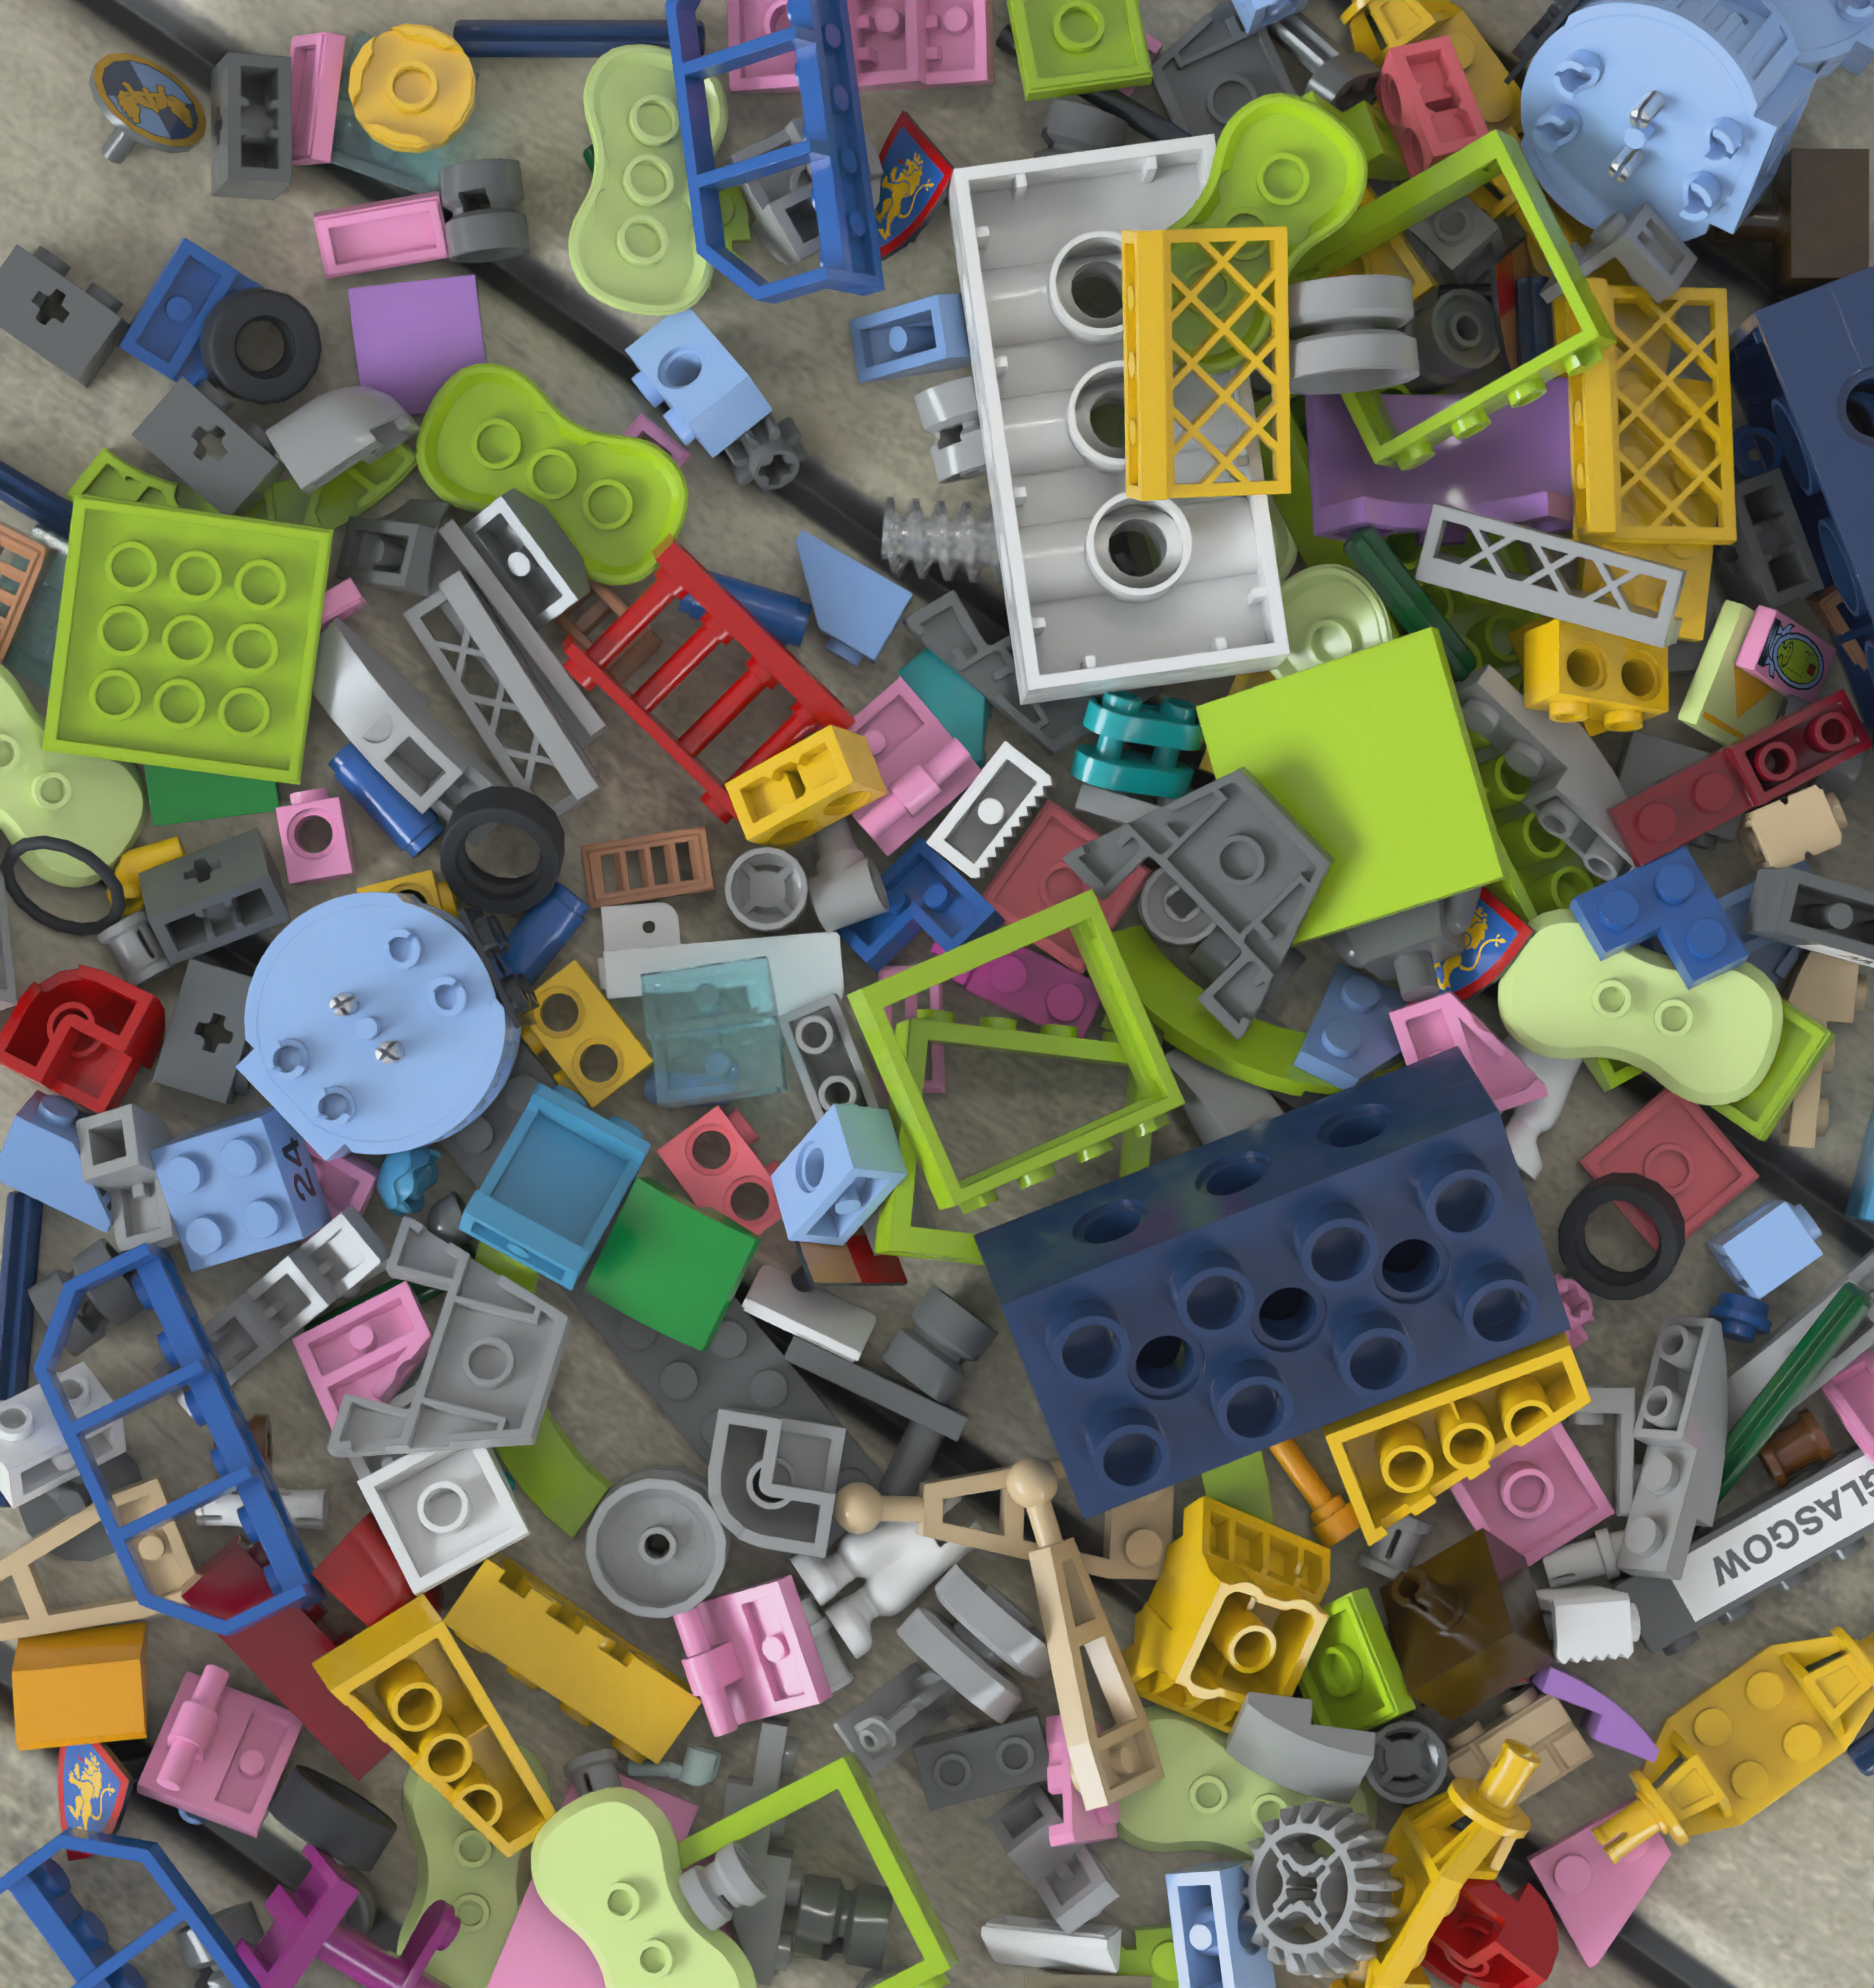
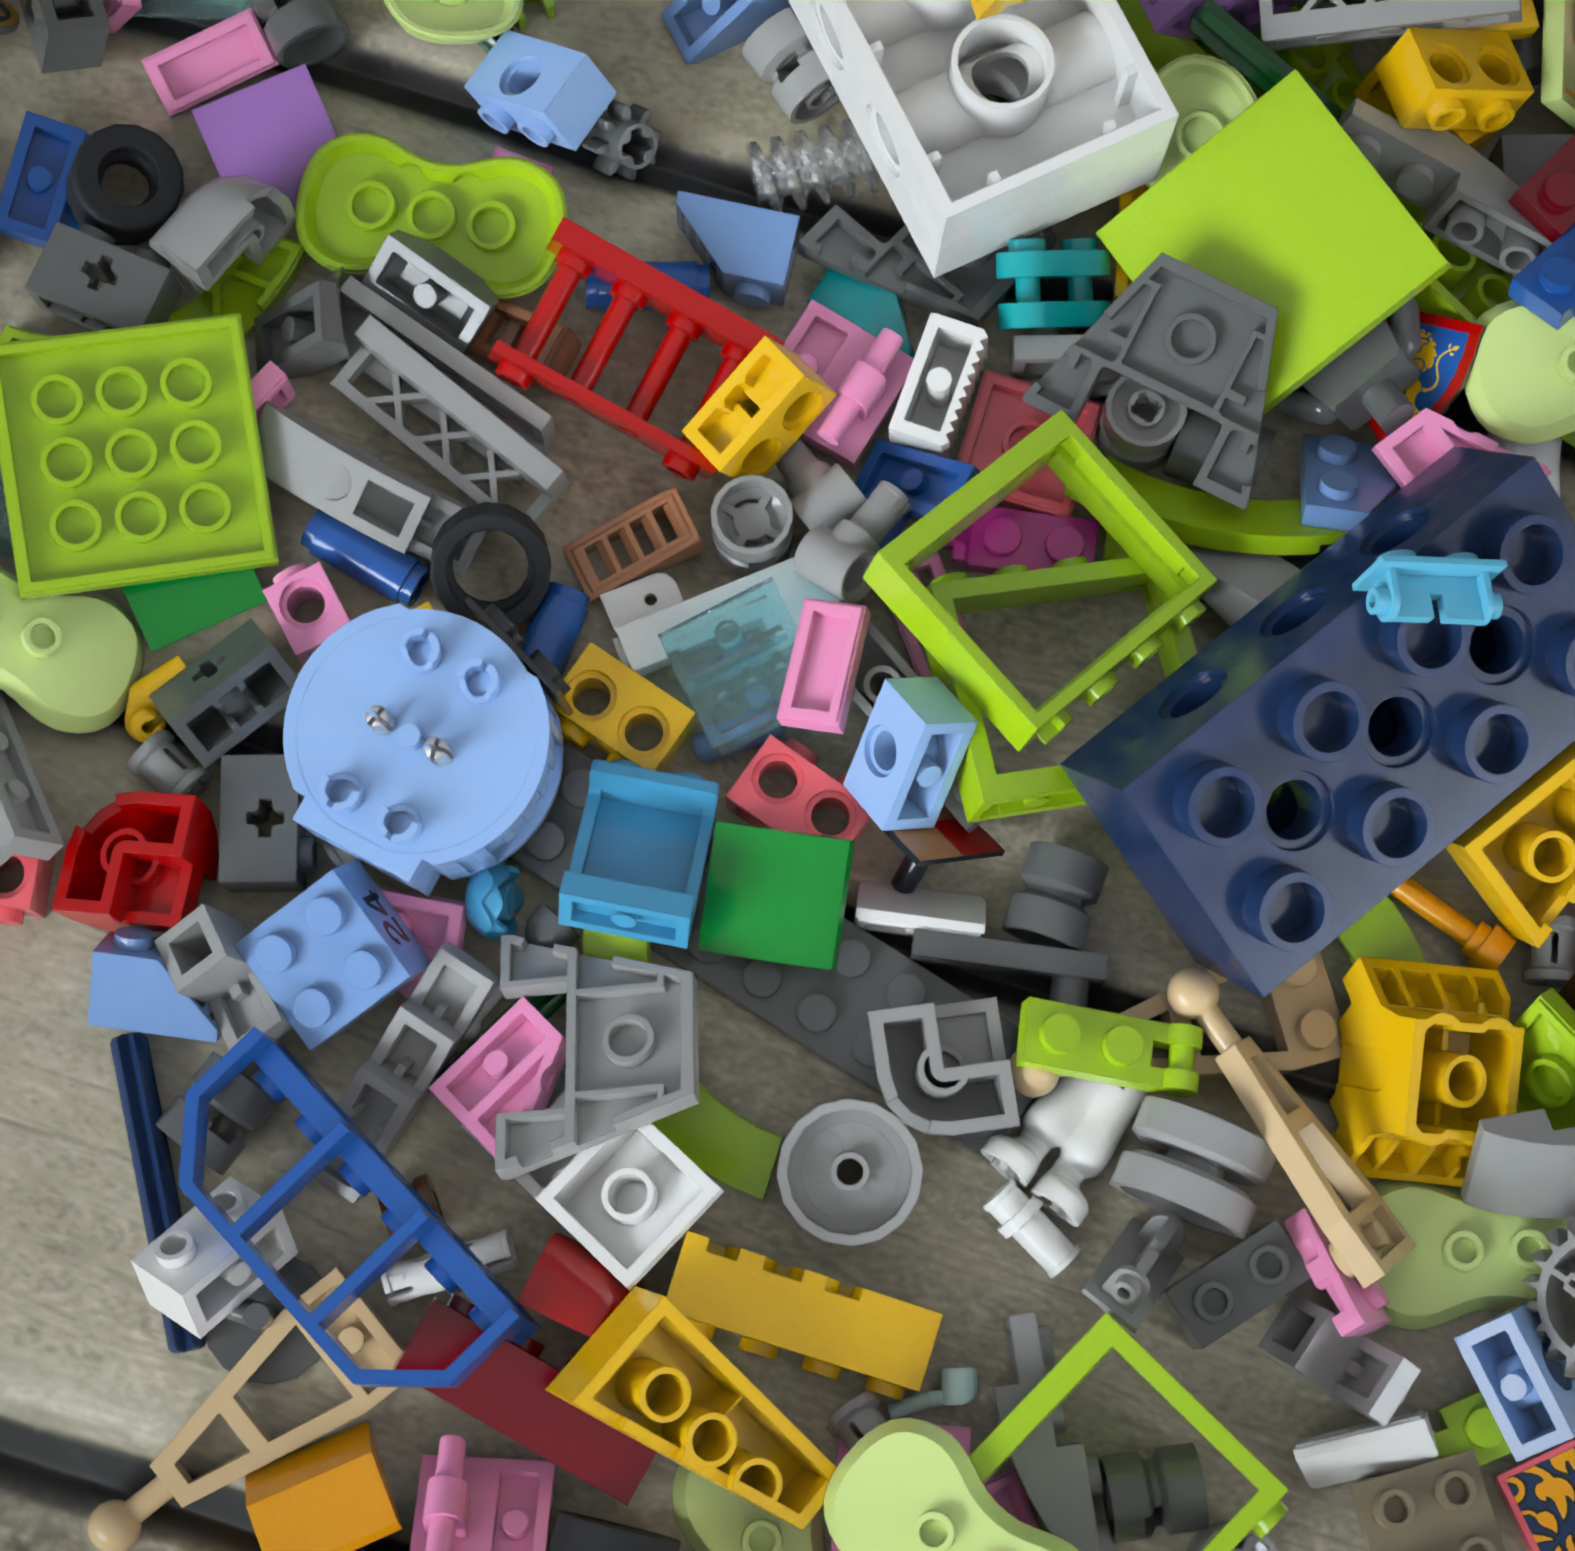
camera: 20 degrees left, 10 degrees down
(79, 853) = (86, 682): black piece -> none
(723, 1885) = (1031, 1481): light grey wheel -> none
(751, 1654) = (977, 1252): bright pink plate -> none
(786, 1062) = (823, 665): none -> bright pink tile
(841, 958) = (840, 556): none -> light grey pin
(932, 1509) = (1107, 1047): none -> lime plate
(1376, 1214) = (1405, 584): none -> medium azure hinge

